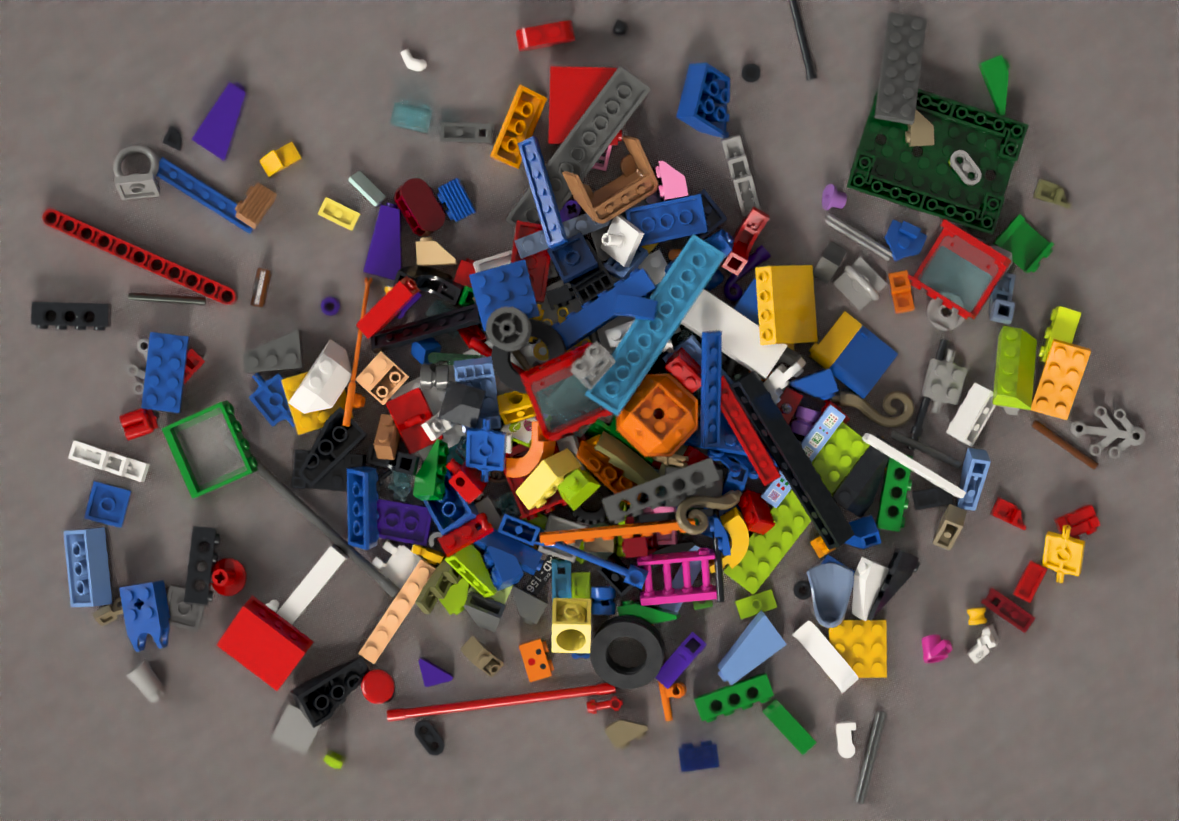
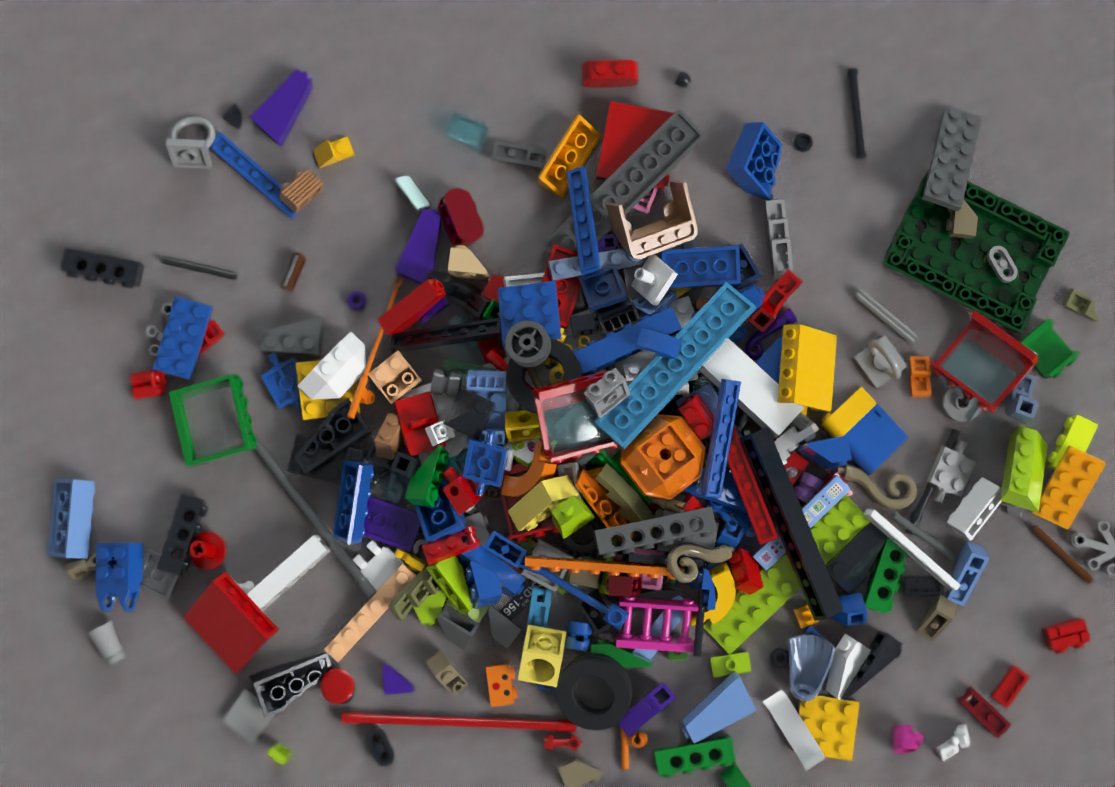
camera: 10 degrees right, 5 degrees down
(108, 461) = (112, 417): white slope -> none
(108, 504) = (103, 459): blue plate -> none
(130, 256) = (173, 217): red beam -> none
(339, 214) = (381, 213): light yellow plate -> none
(412, 63) = (477, 81): white arm -> none
(421, 349) = (439, 354): blue panel -> none
(456, 200) = (498, 217): blue brick -> none
(508, 504) = (498, 523): clear light blue slope -> none
(580, 585) = (558, 616): lime plate -> none
(672, 182) = (711, 230): bright pink slope -> none
(829, 262) = (852, 336): dark grey slope -> none
(833, 198) = (866, 273): medium lavender piece -> none
(904, 239) = (931, 325): blue plate -> none
(976, 615) = (952, 712): yellow wheel -> none
(996, 76) = (1042, 183): green slope -> none
(1008, 512) = (997, 614): red slope -> none
(1063, 553) = (1049, 663): yellow plate -> none

